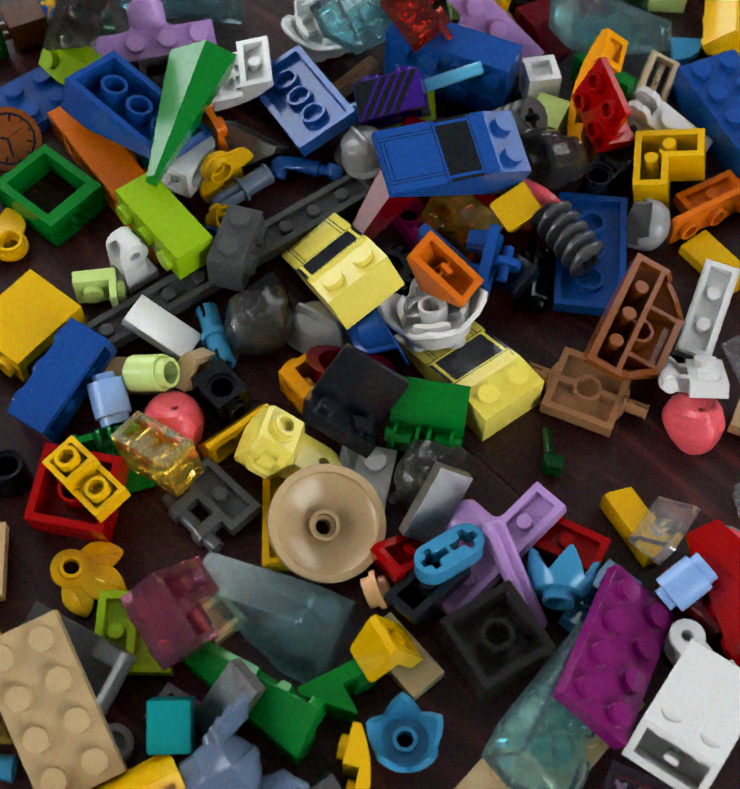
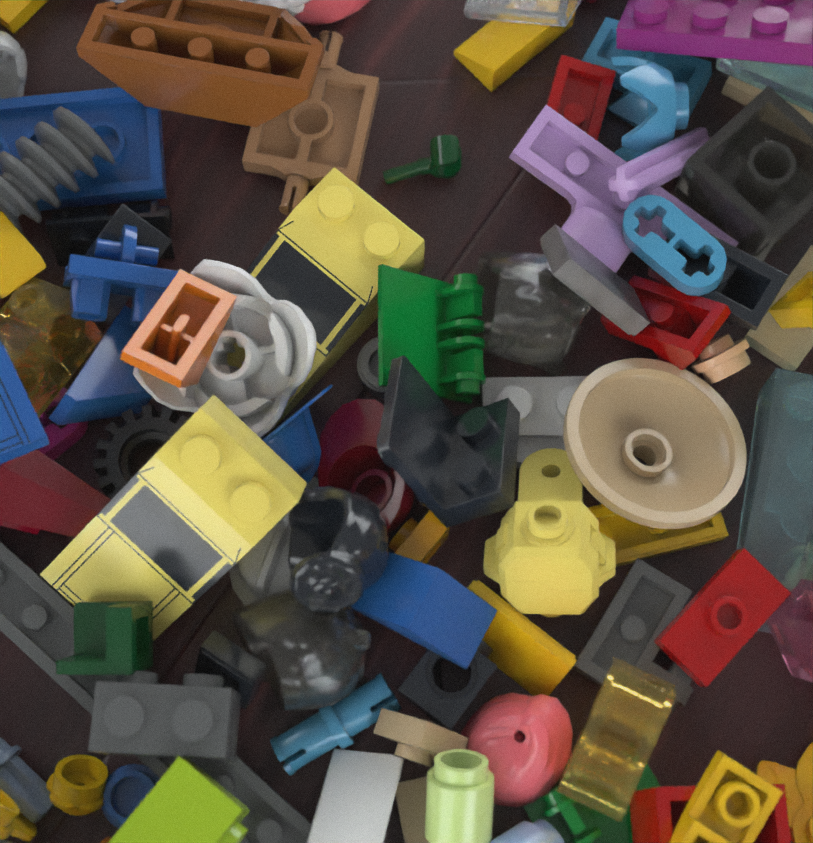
camera: 100 degrees left, 15 degrees up
(210, 536) = (722, 617): none -> red plate
(257, 373) = (428, 609): none -> blue slope
(284, 234) = (110, 638): none -> dark green panel
(300, 332) = (335, 548): none -> black hair

